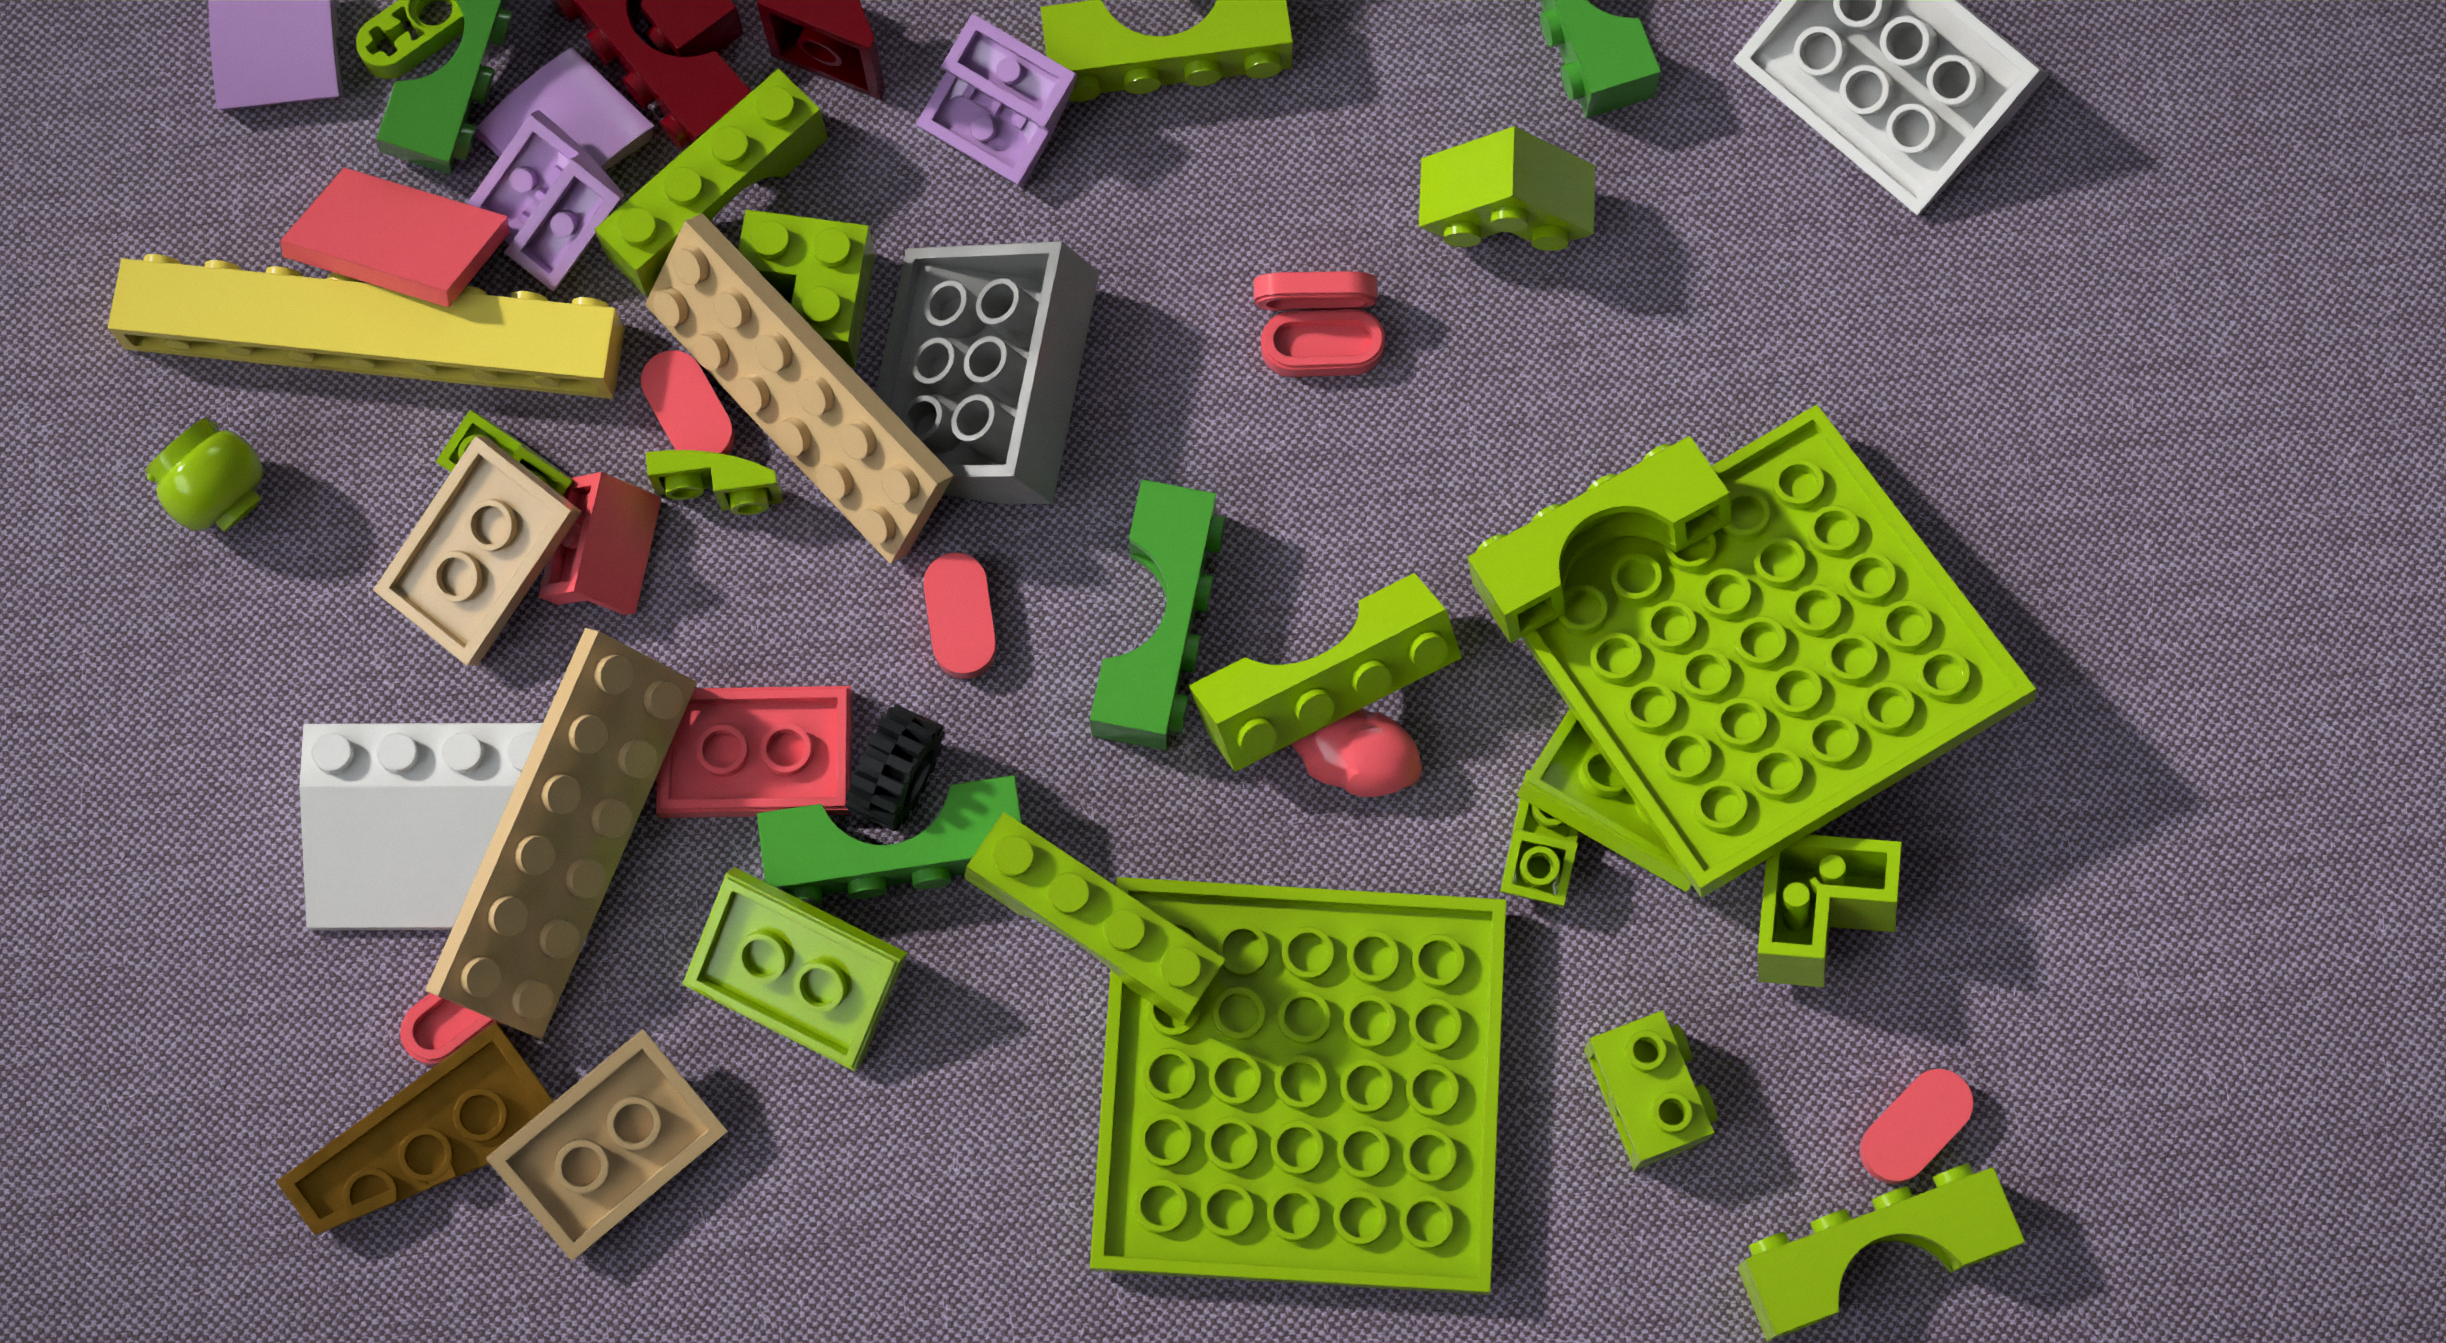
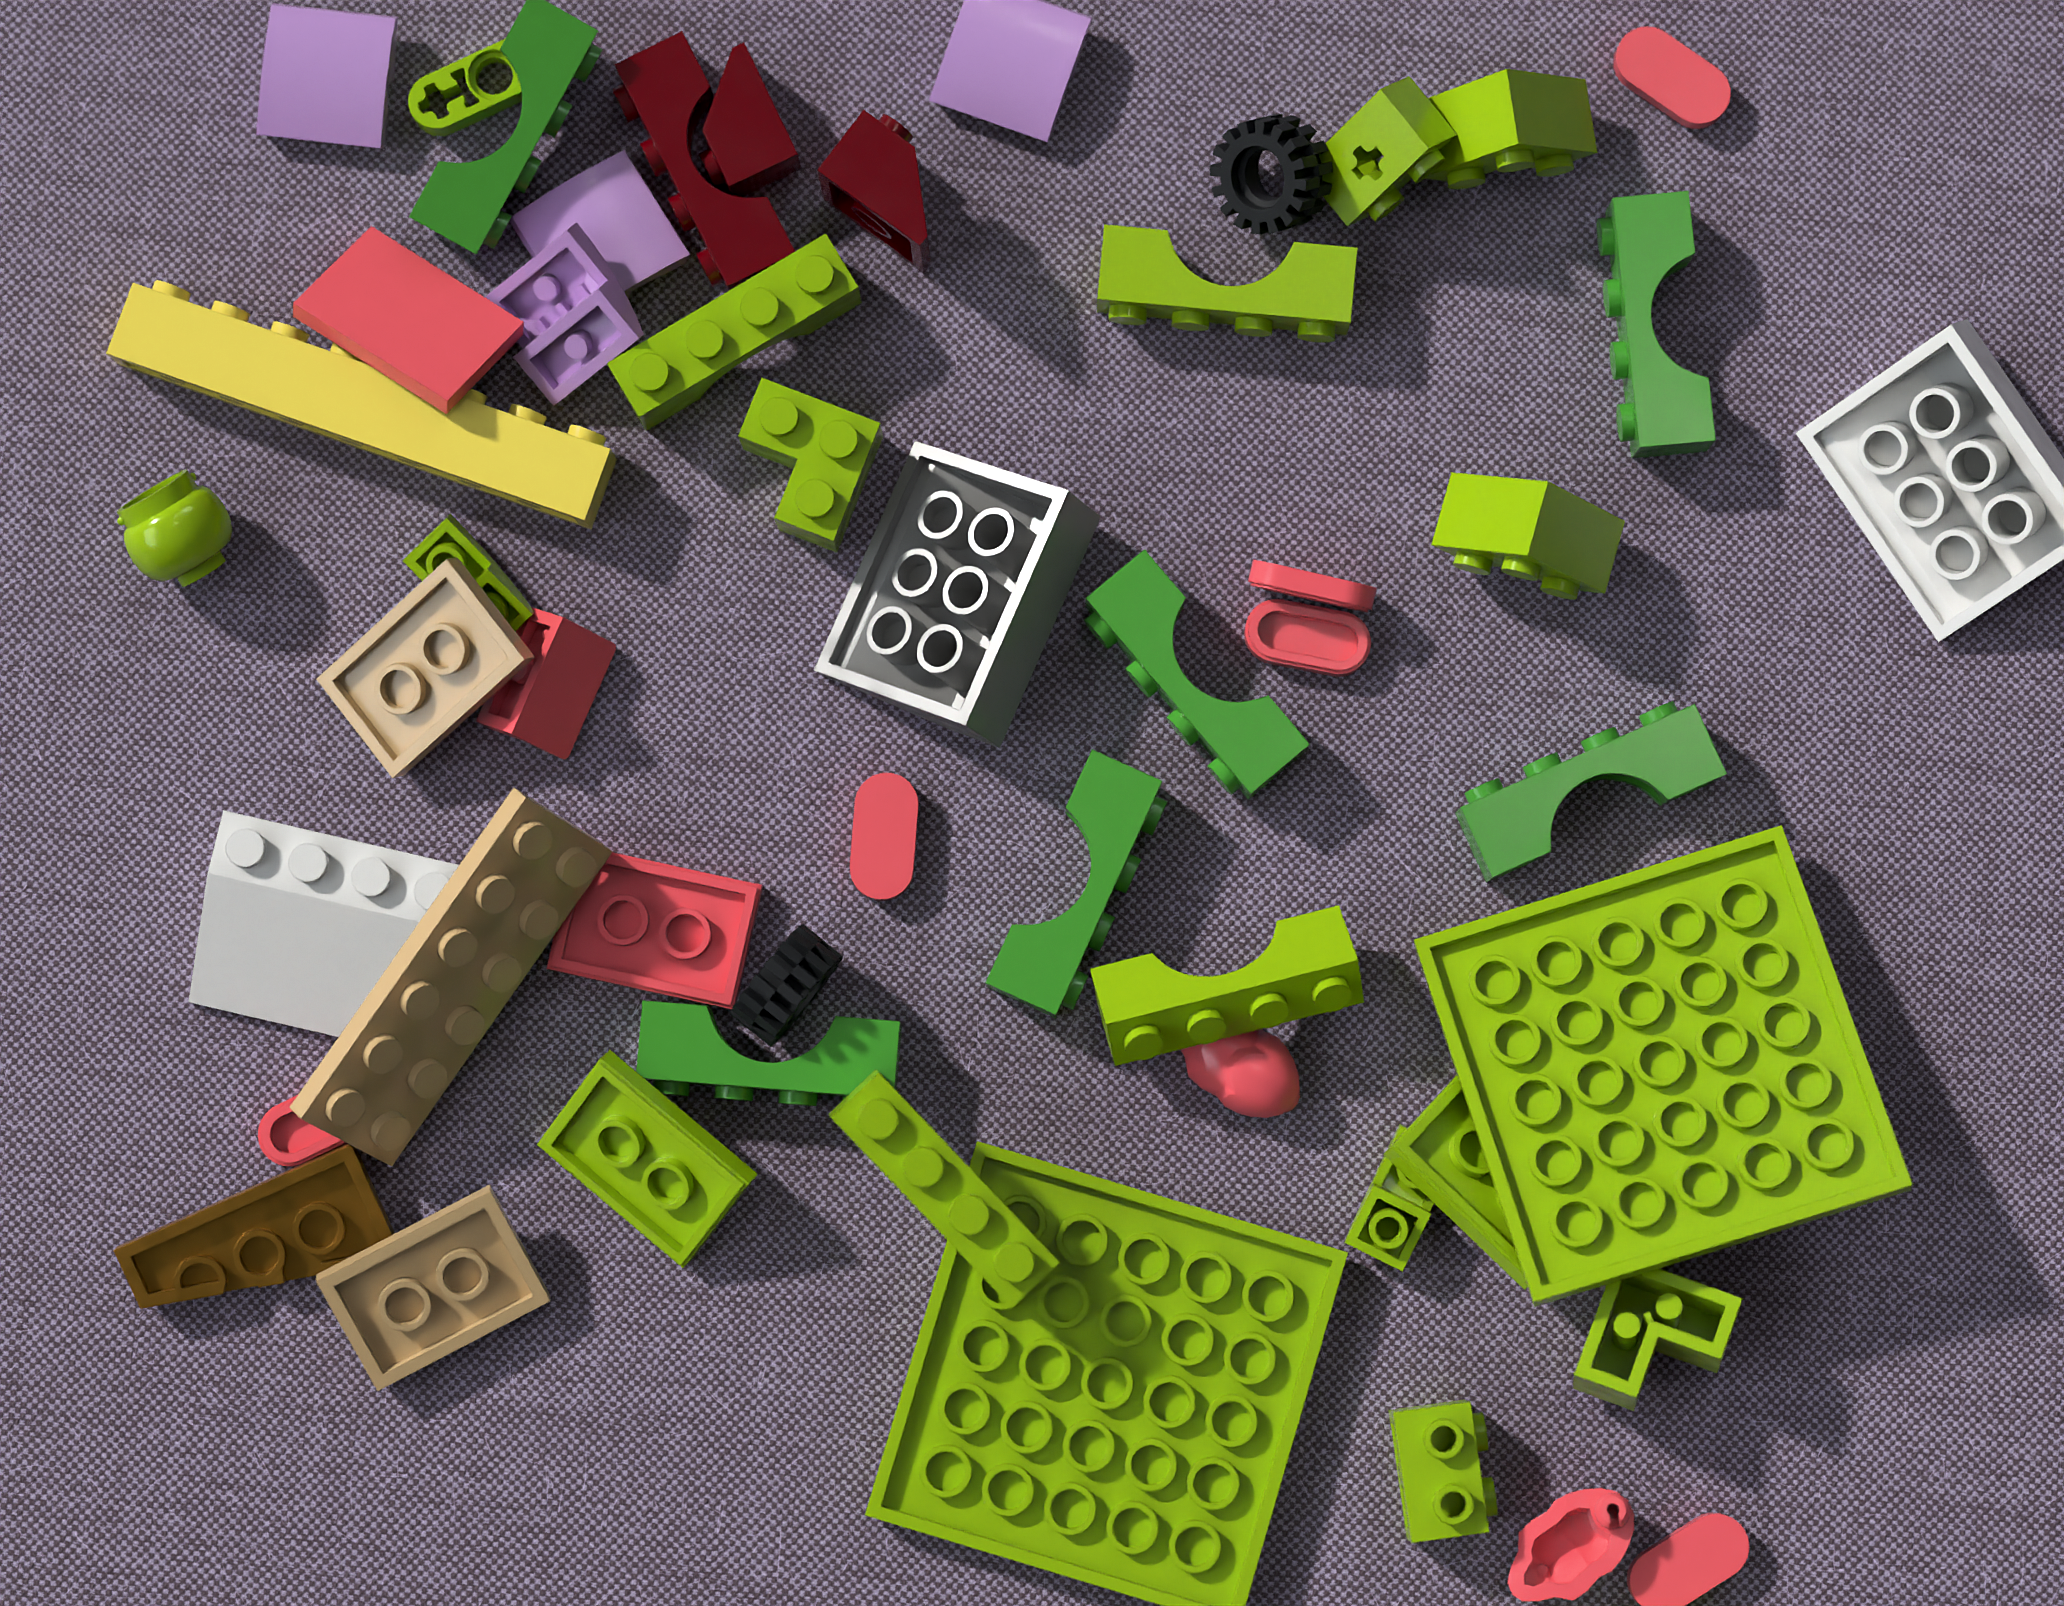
camera: 15 degrees right, 10 degrees up
(686, 403) = (661, 559): coral tile -> none
(736, 482) = (690, 651): lime slope -> none
(797, 389) = (772, 574): tan plate -> none
(997, 100) = (1039, 312): lavender slope -> none
(1283, 442) = (1245, 738): none -> bright green arch
(1664, 498) = (1604, 892): lime arch -> none
(1685, 373) = (1661, 758): none -> bright green arch
(1798, 1132) = (1571, 1545): none -> coral arm

